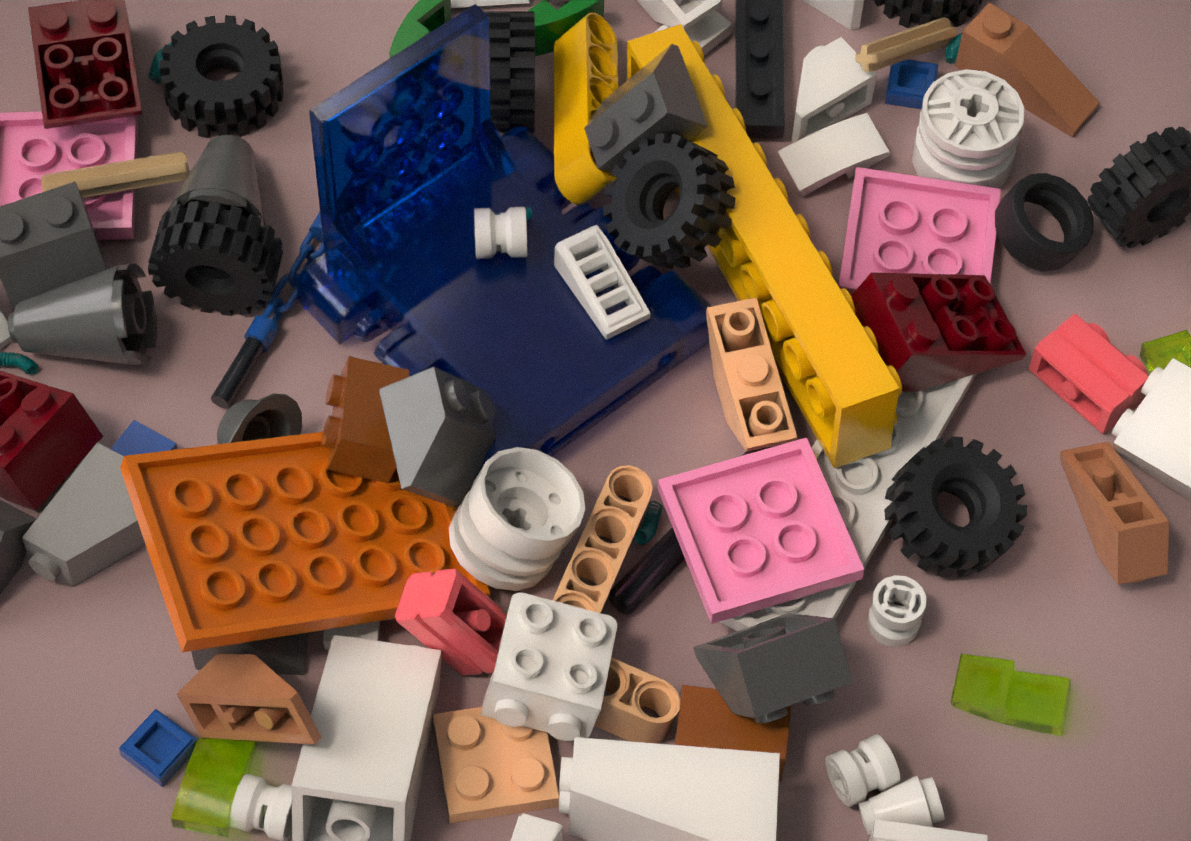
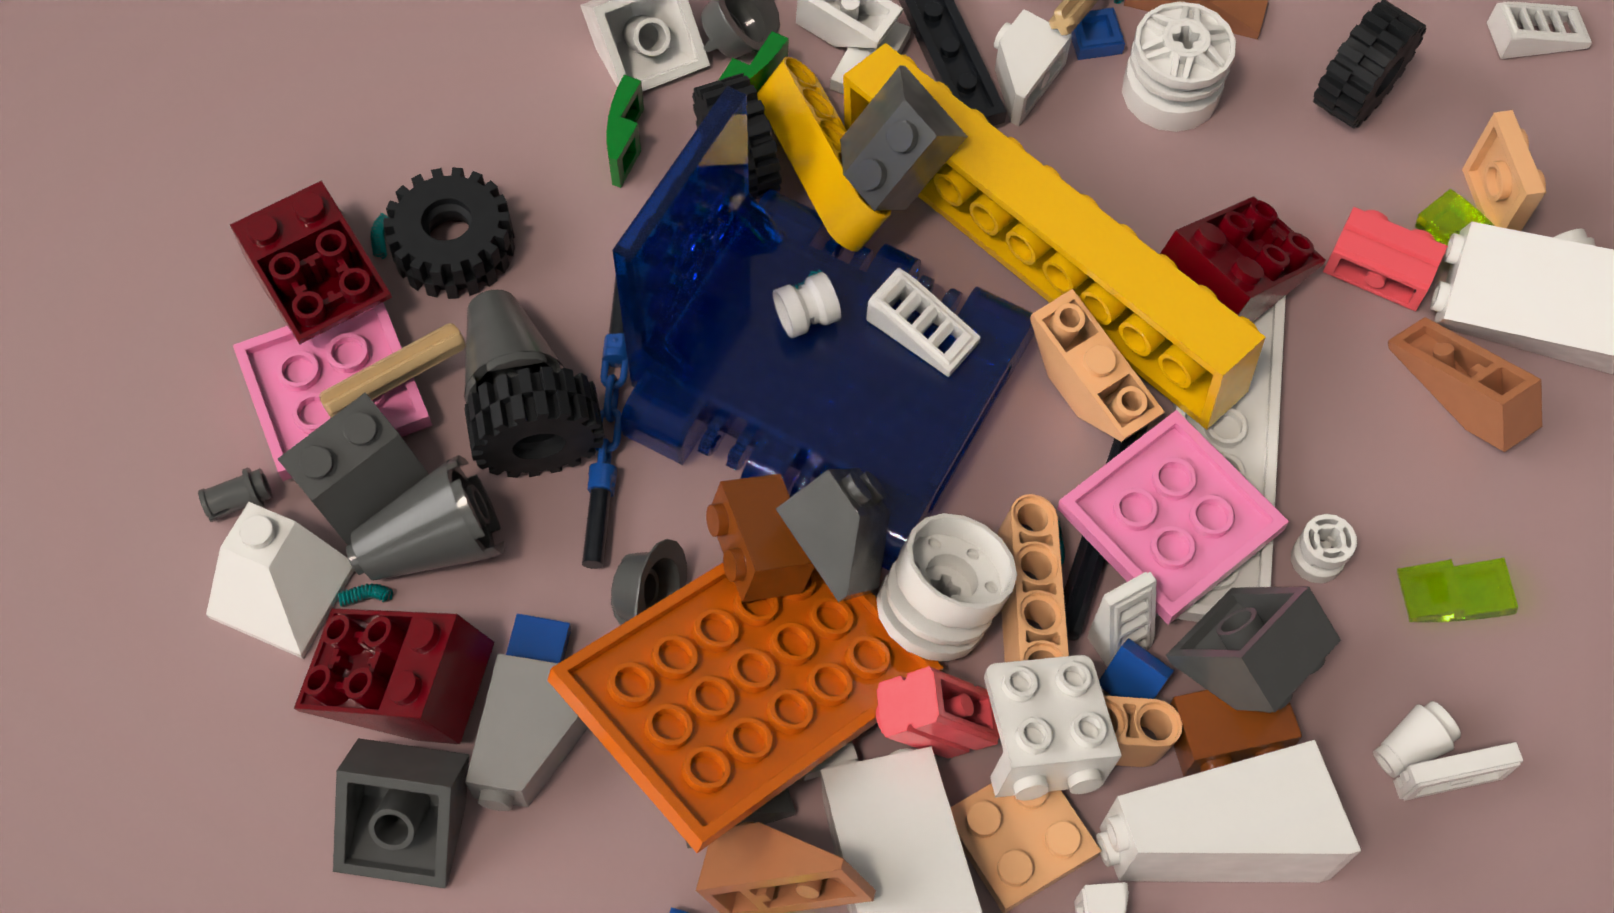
camera: 20 degrees left, 5 degrees up
(642, 193) = (925, 216): black tyre -> none
(663, 655) = (1135, 673): none -> blue tile
(672, 605) = (1125, 614): none -> white slope
(833, 152) = (1062, 121): white slope -> none
(862, 770) = (1365, 717): white wheel -> none
(917, 227) = (1169, 172): bright pink plate -> none
(981, 487) = (1354, 409): black tyre -> none
(1065, 205) = (1267, 146): black tyre -> none

